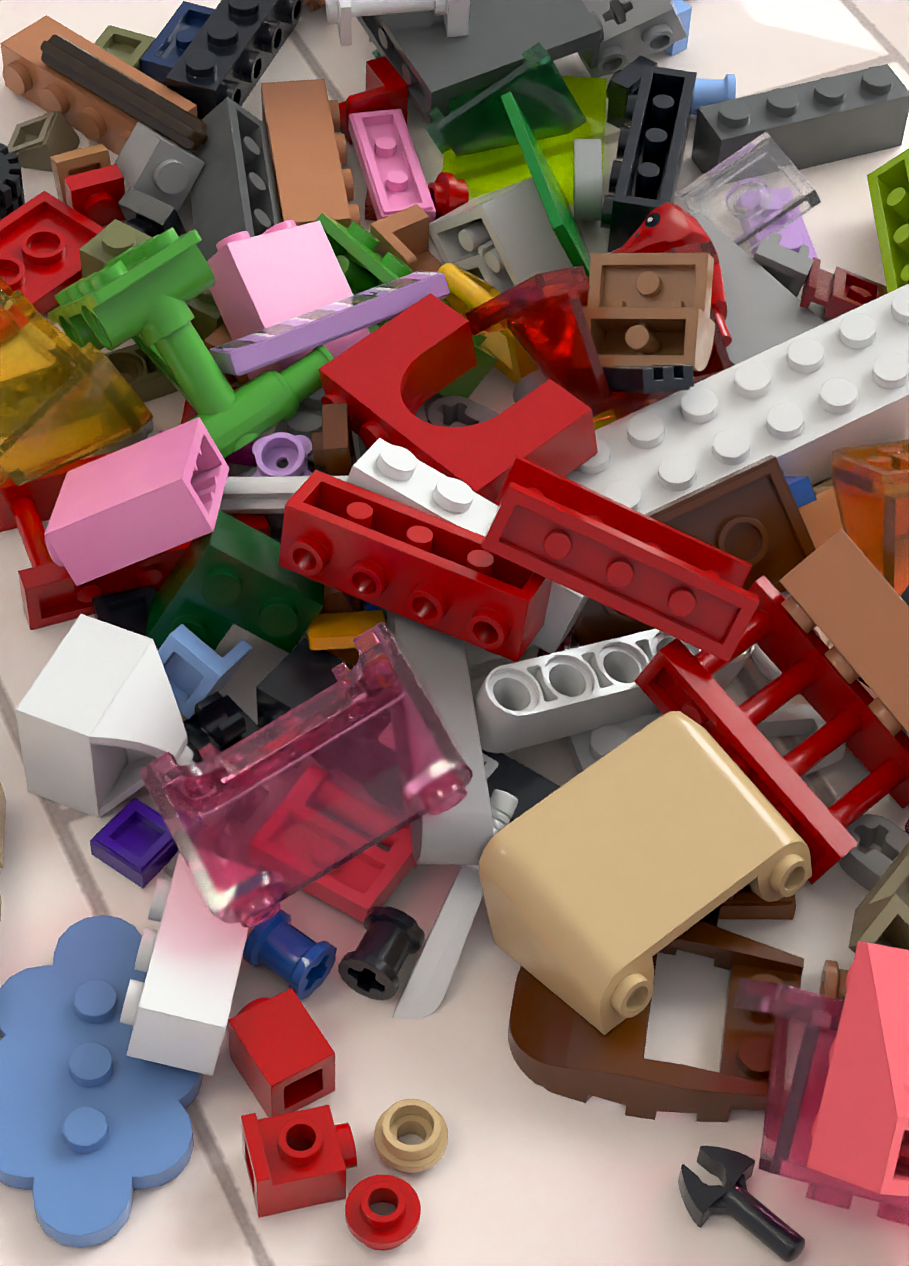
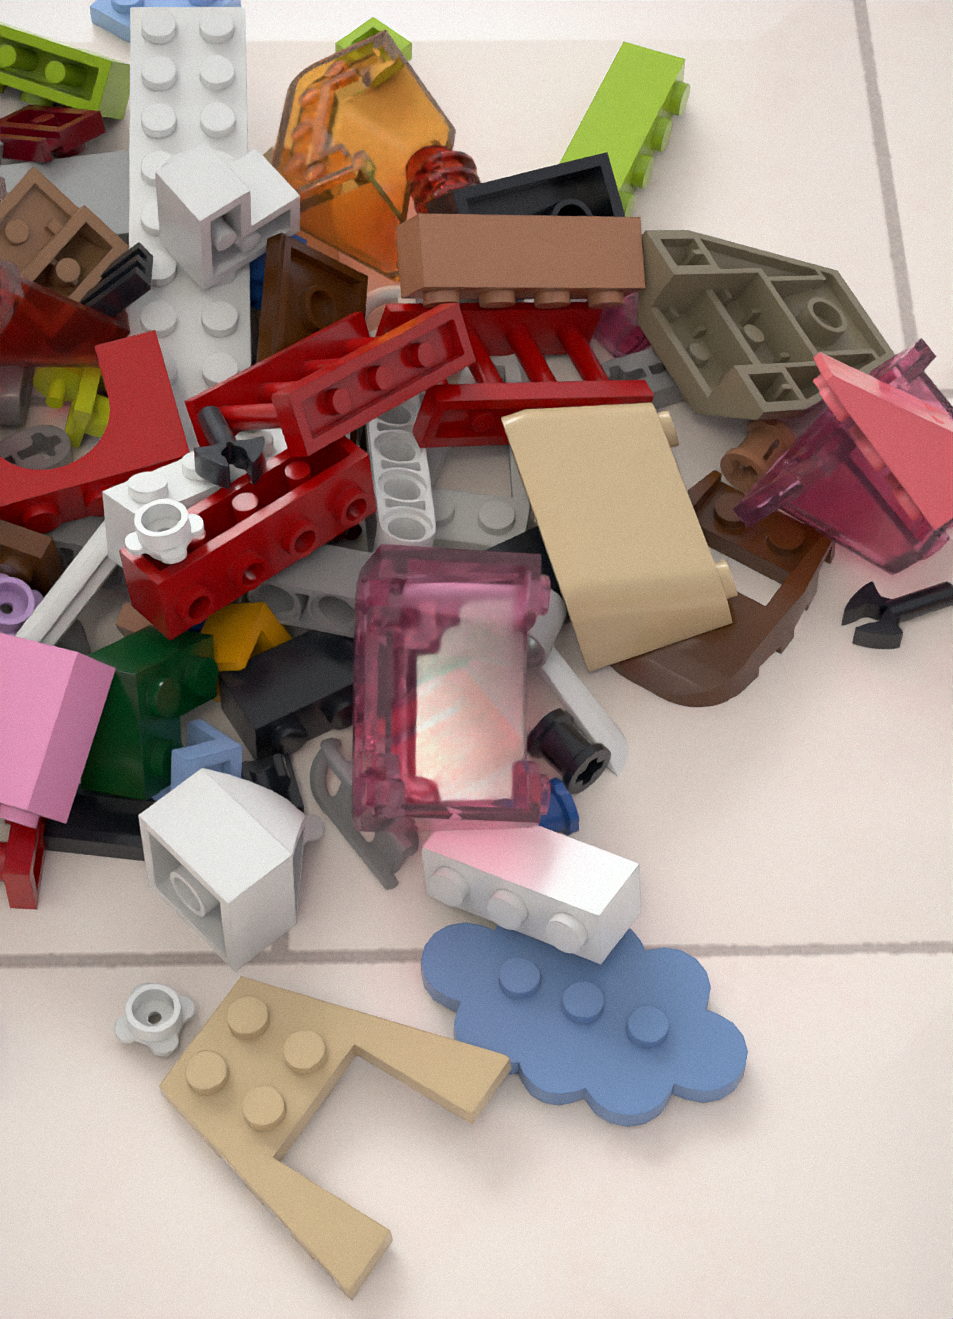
camera: 65 degrees left, 5 degrees up
(135, 843) = (348, 897): dark purple tile -> none
(281, 1053) = (653, 842): red brick -> none
(296, 1159) = (741, 883): red brick -> none
(337, 481) = (164, 531): none -> white plate
(382, 1231) = (806, 858): red plate -> none
(411, 1117) = (753, 784): tan plate -> none
(466, 503) = (214, 460): none -> black bar
(755, 407) = (221, 212): none -> white brick

